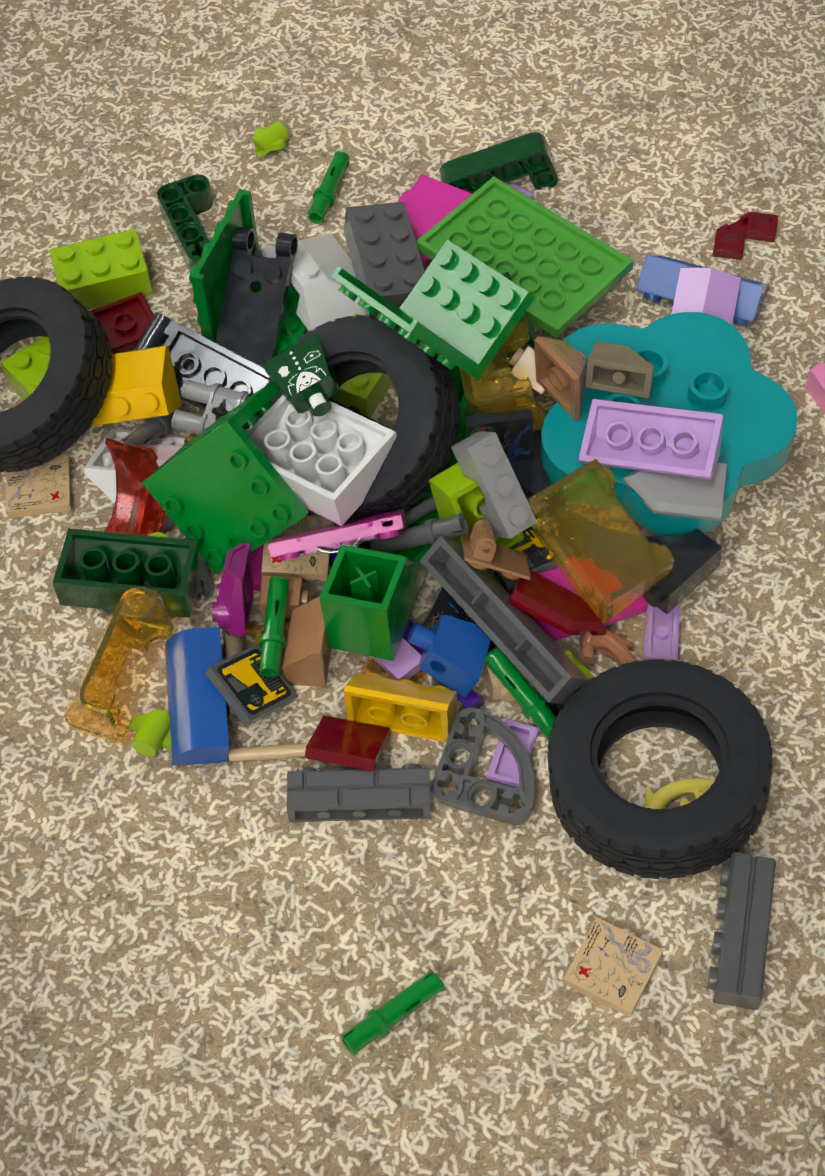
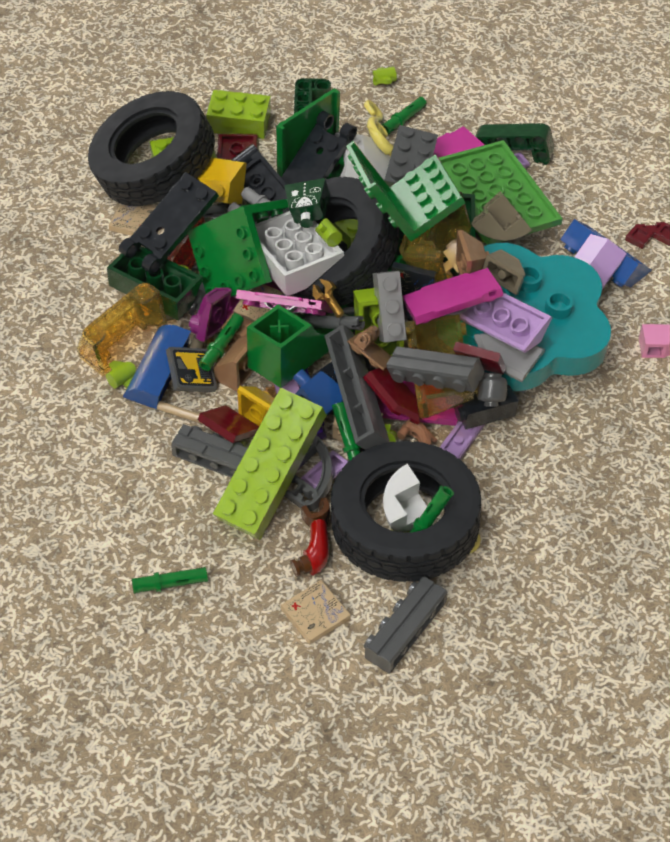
camera: 20 degrees right, 5 degrees down
(117, 464) = (176, 215): none -> black hinge
(308, 223) = (376, 130): none -> light yellow plant
(361, 412) = (329, 233): none -> lime piece
(401, 504) = (328, 297): none -> pearl gold bar
(448, 782) = (270, 463): none -> lime brick
(562, 295) = (500, 220): none -> dark tan brick
(572, 883) = (317, 553): none -> piece
(575, 436) = (452, 295): none -> dark pink piece
(604, 551) = (435, 369): none -> dark grey brick
(655, 758) = (402, 500): none -> white brick
(660, 512) = (490, 360): none -> dark red tile
(688, 546) = (492, 389): none -> dark grey head
(696, 779) = (433, 509): none -> green pin

